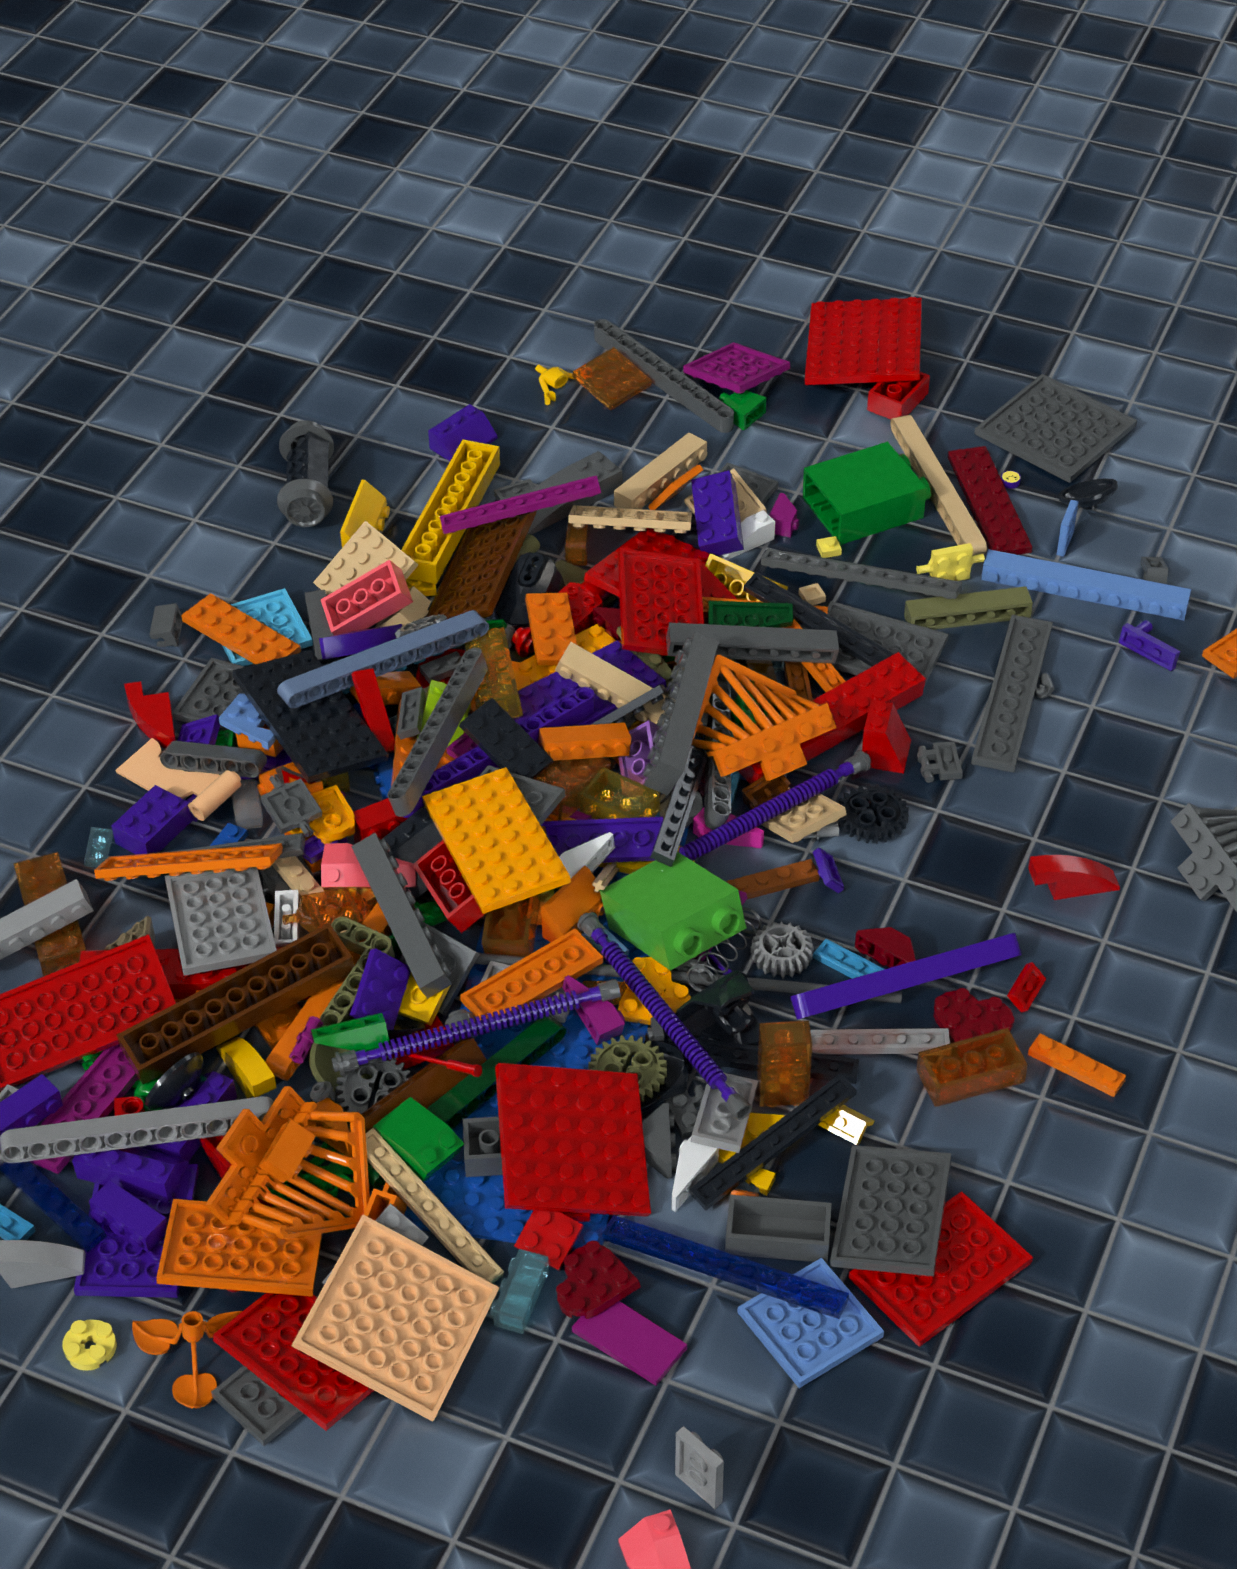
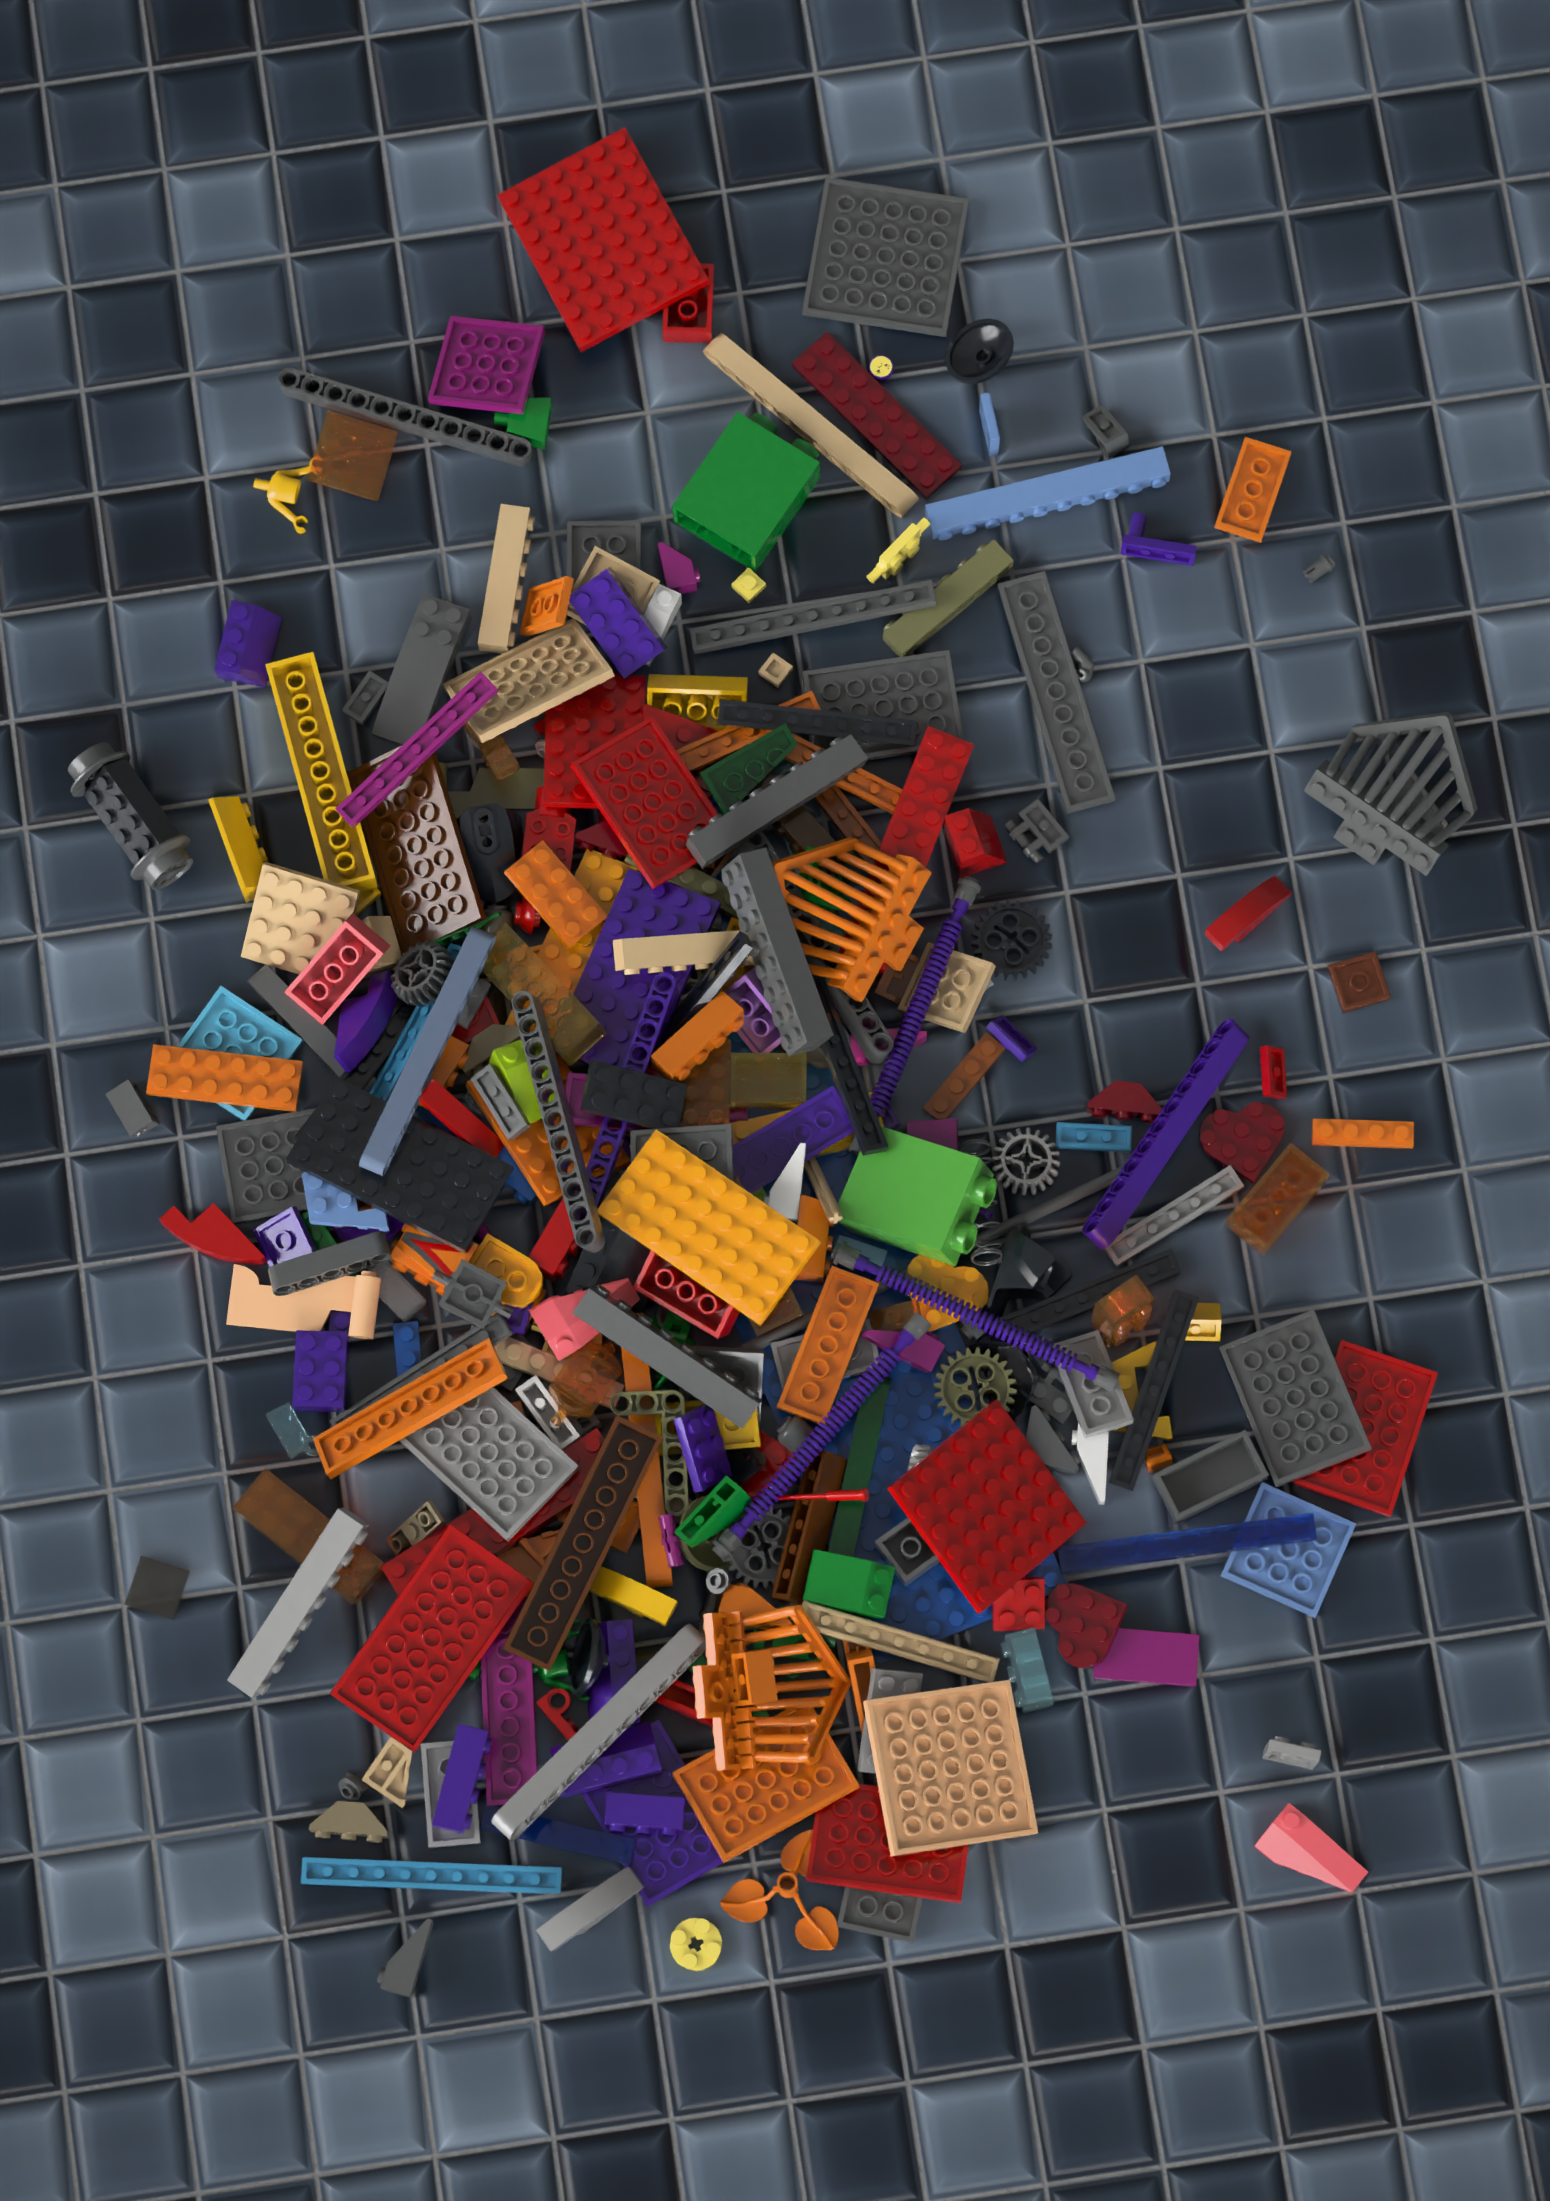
camera: 30 degrees left, 30 degrees up
(1139, 967) = (1359, 982): none -> copper tile

